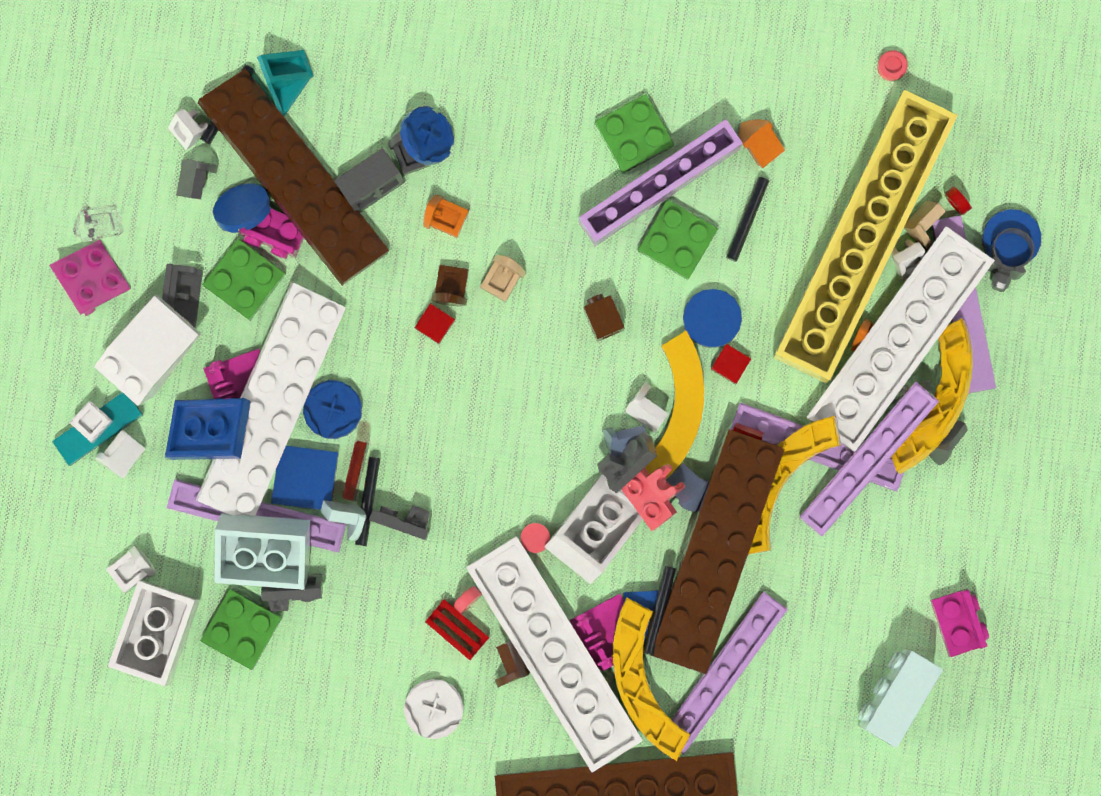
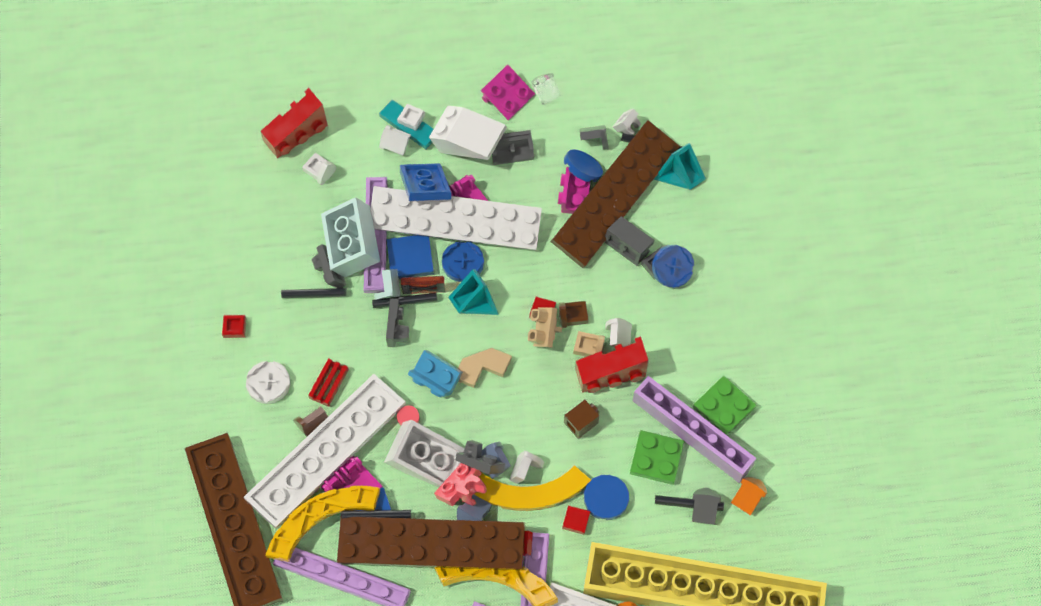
camera: 75 degrees right, 20 degrees down
(59, 587) = (296, 125): none -> red wedge
(153, 633) = (278, 188): white brick -> none
(241, 629) = (294, 245): bright green plate -> none
(244, 279) = (535, 184): bright green plate -> none
(321, 620) = (309, 293): none -> black bar
(339, 737) = (234, 326): none -> red tile
(392, 410) = (473, 296): none -> teal slope
(444, 216) = (621, 294): orange tile -> none
(467, 328) = (545, 327): none -> tan hips
(467, 599) = (351, 381): coral tile -> none
(485, 413) = (489, 360): none -> tan tile
(490, 488) = (435, 374): none -> dark azure bracket
(500, 234) = (620, 331): none -> white tile
(547, 258) = (613, 368): none -> red wedge
(759, 200) = (705, 506): none -> dark grey tile
(892, 65) = (844, 578): coral tile -> none

